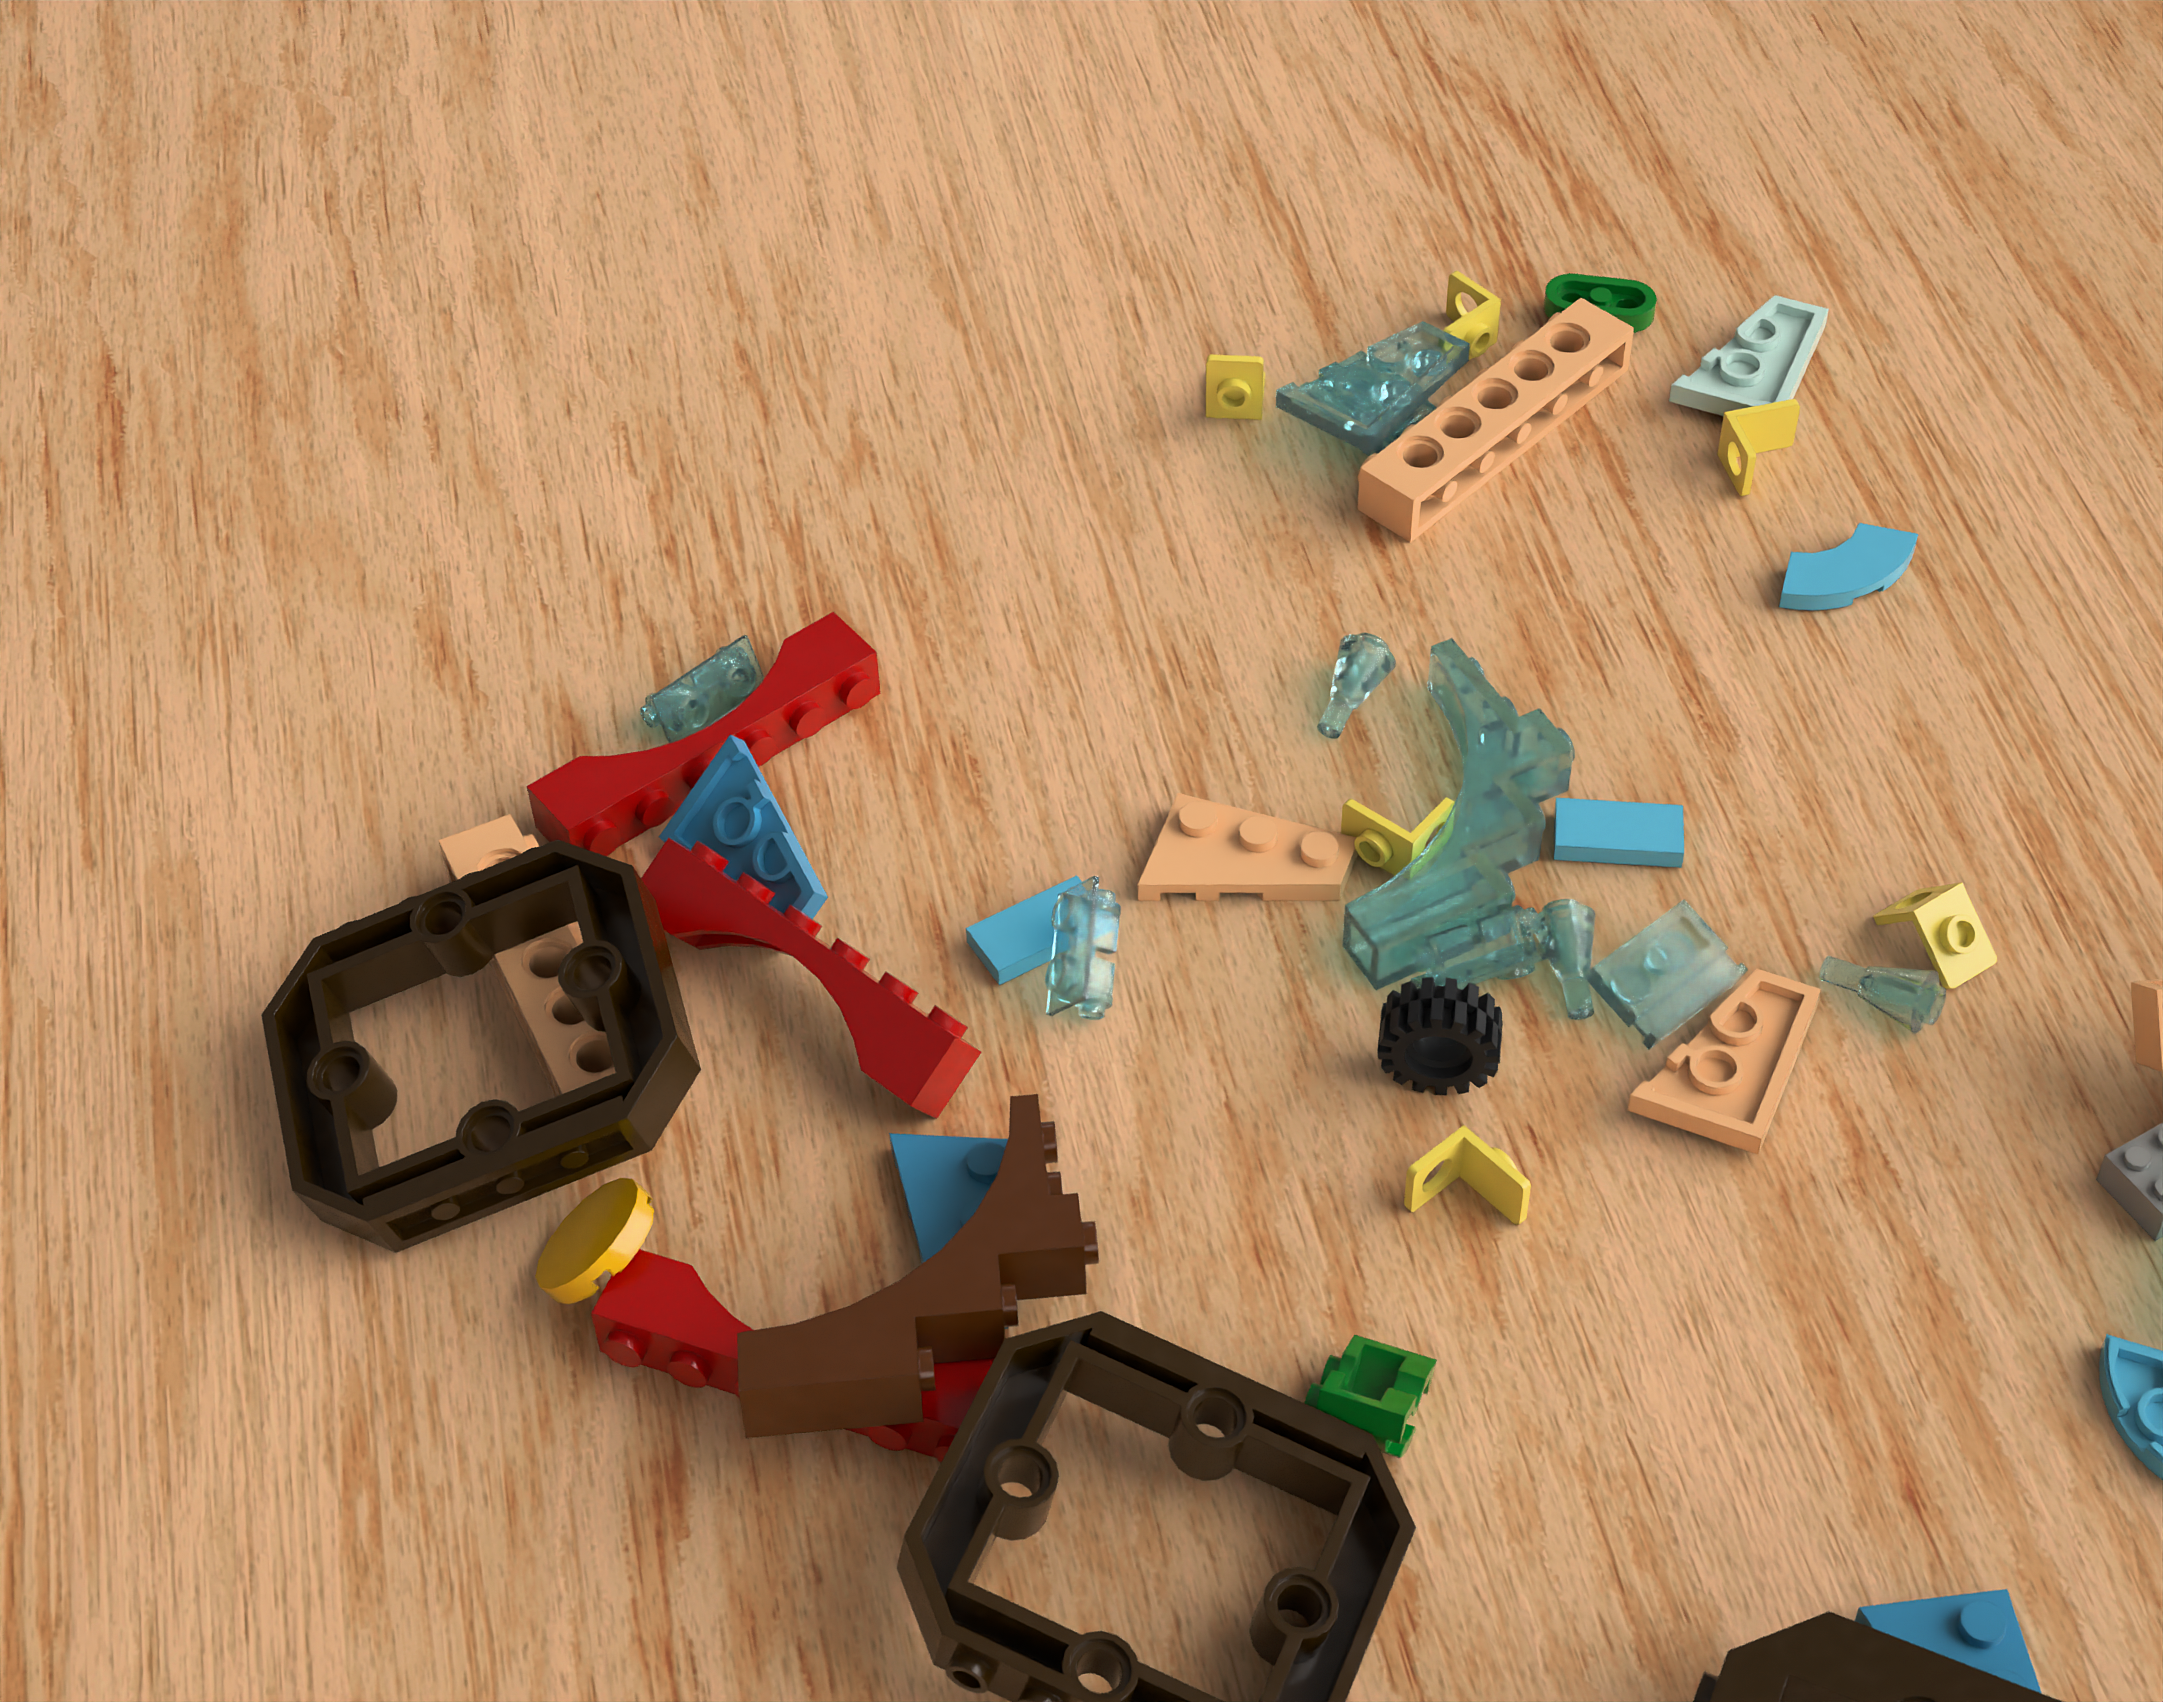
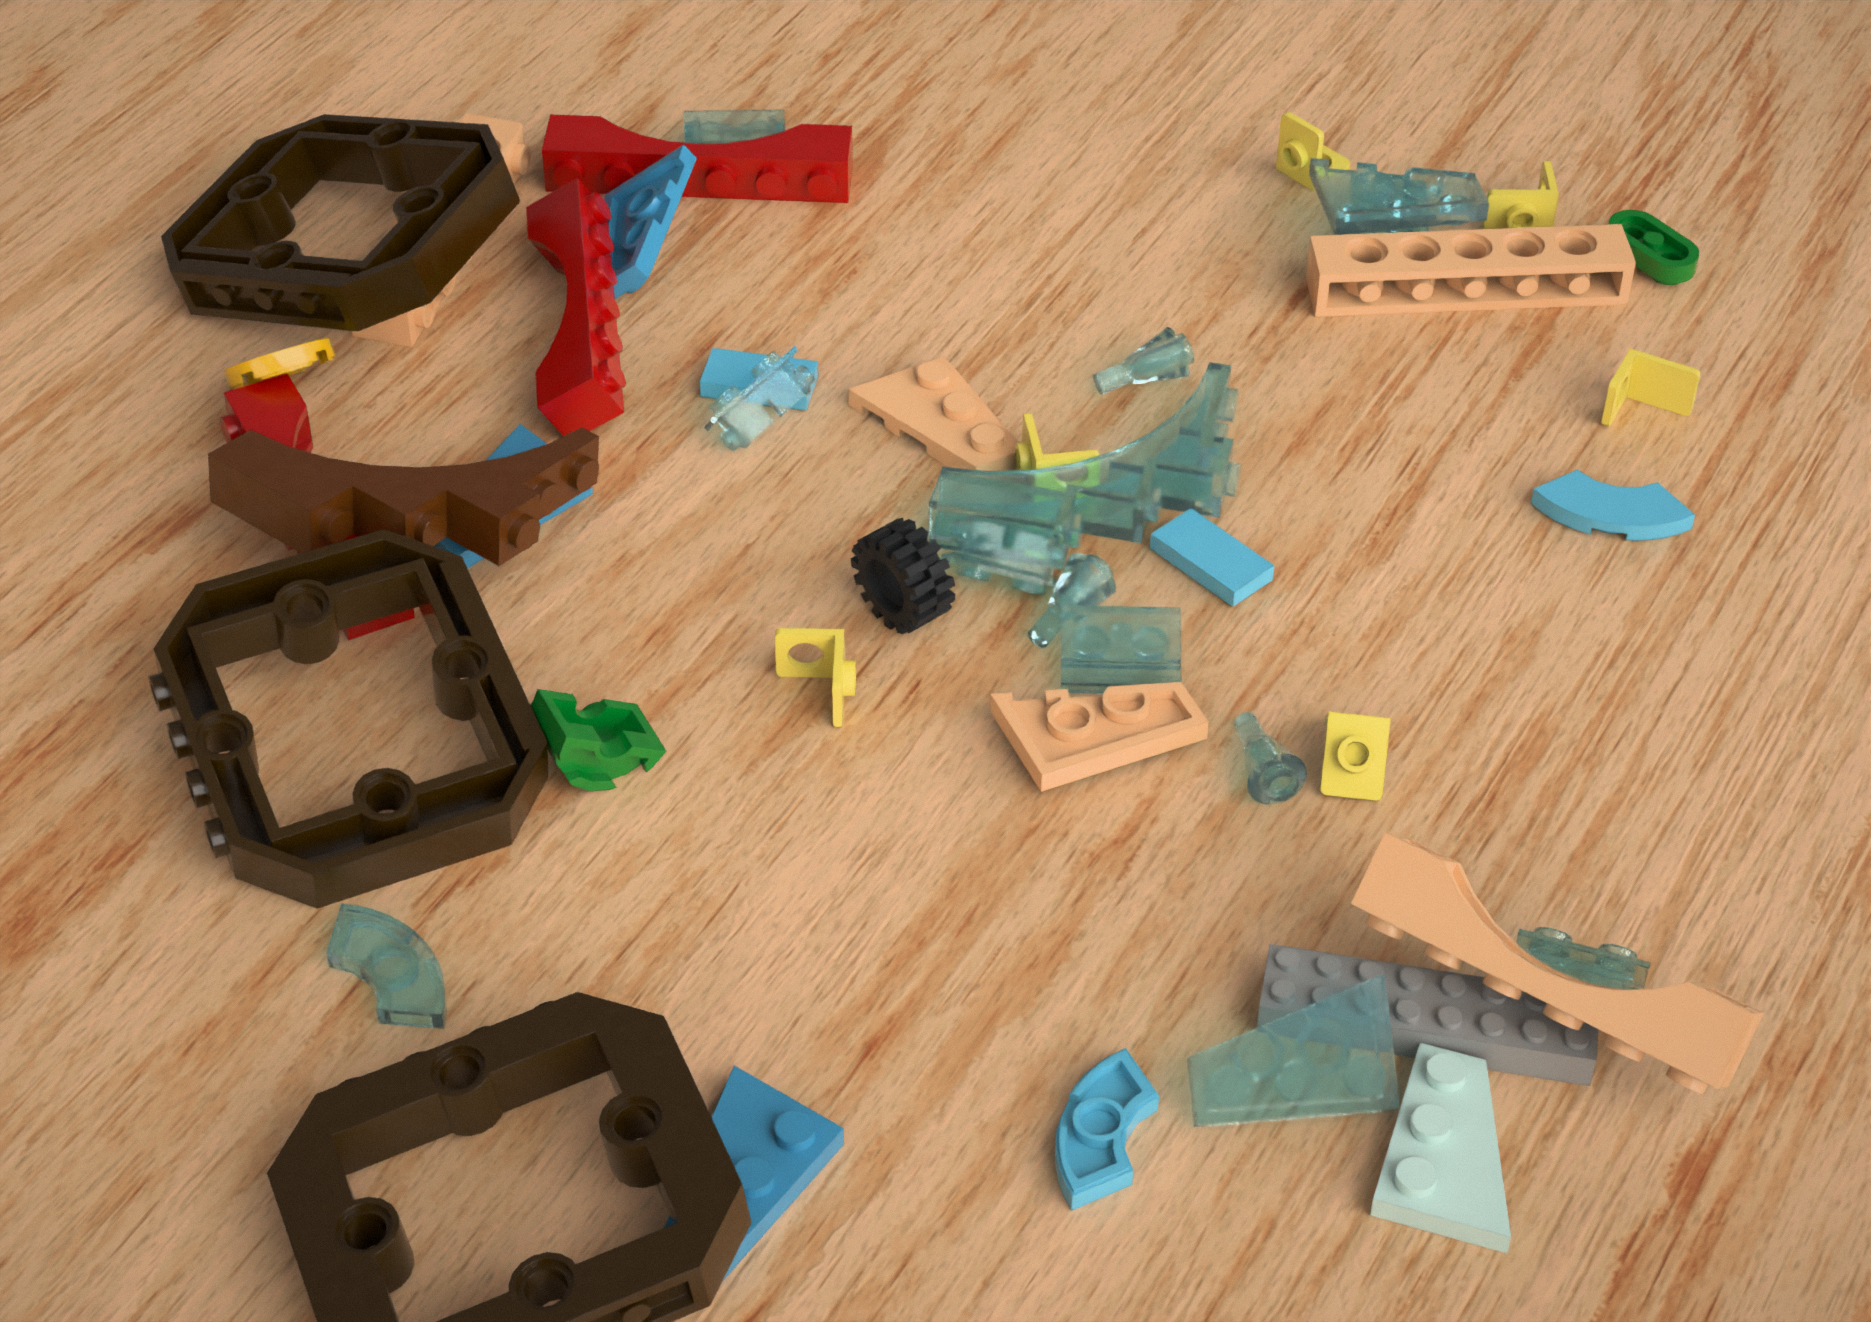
camera: 40 degrees right, 5 degrees down
(1759, 363) = (1729, 349): light aqua wing -> none

